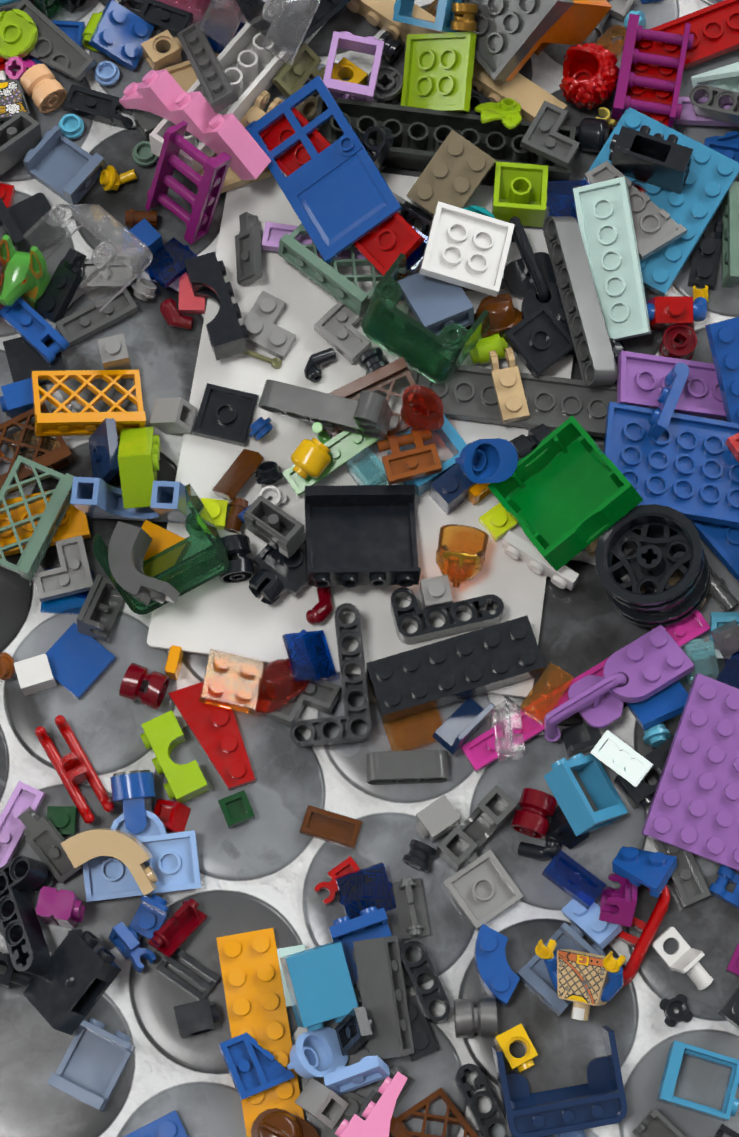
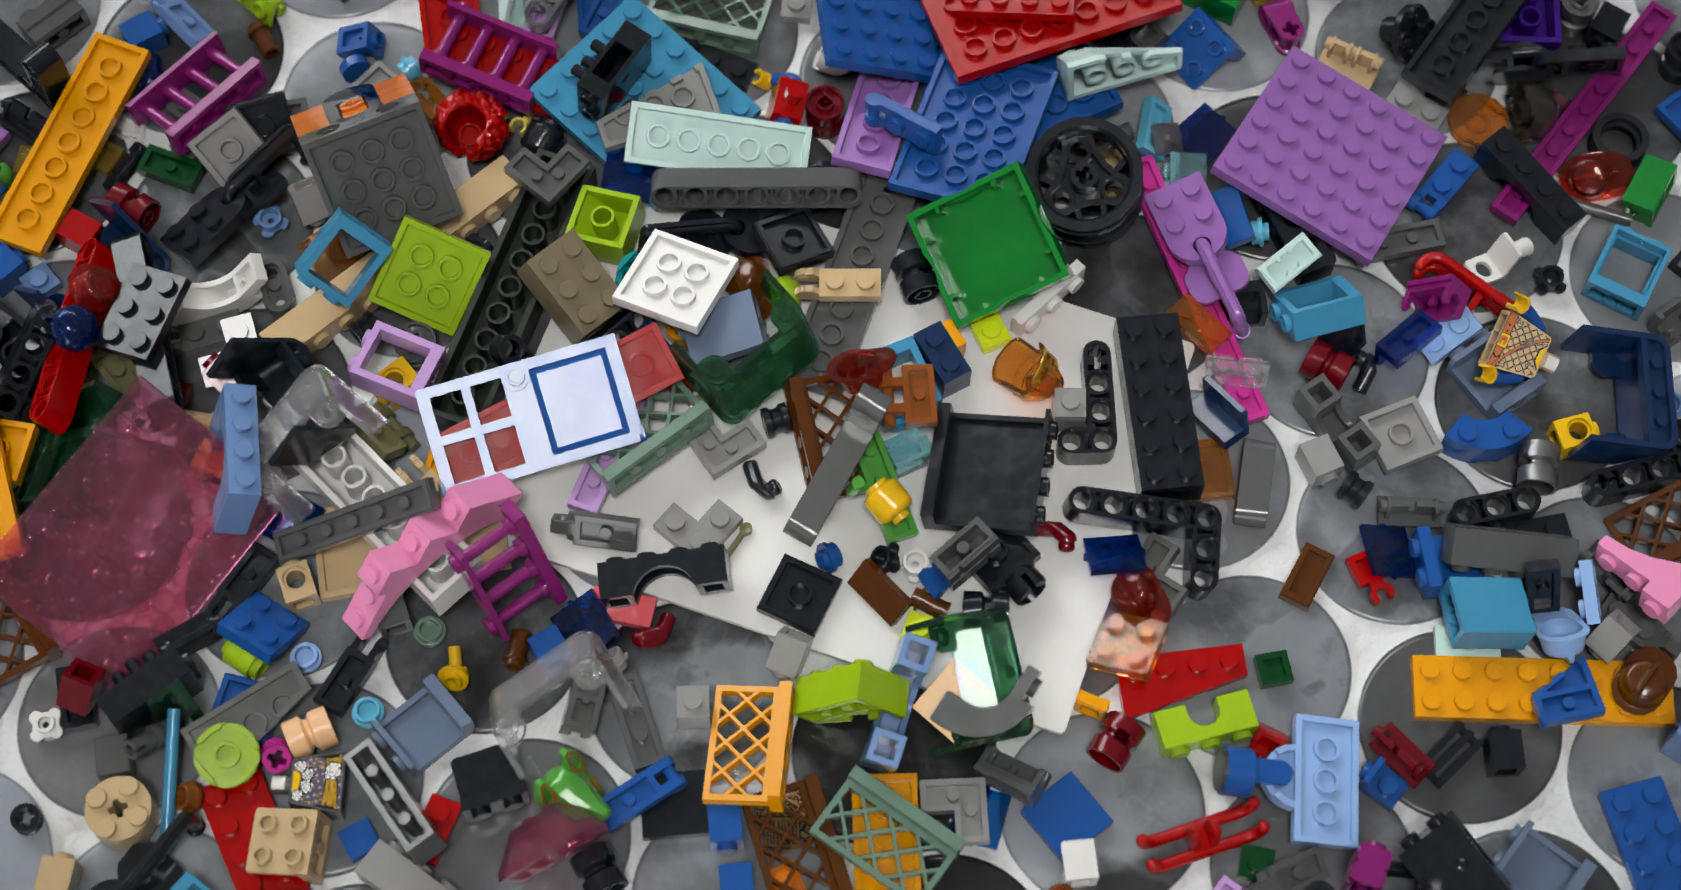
camera: 80 degrees left, 5 degrees down
(62, 286) = (599, 756): black hinge -> none
(104, 450) = (824, 735): dark blue plate -> none
(115, 844) = (1302, 806): tan arch -> none
(127, 943) = (1412, 810): blue plate -> none
(308, 107) = (417, 435): dark tan tile -> none
(464, 17) = (384, 219): pearl gold wheel -> none
(488, 460) = (938, 314): blue piece -> none
(505, 110) = (498, 220): lime plate -> none
(645, 868) = (1405, 270): blue wing -> none

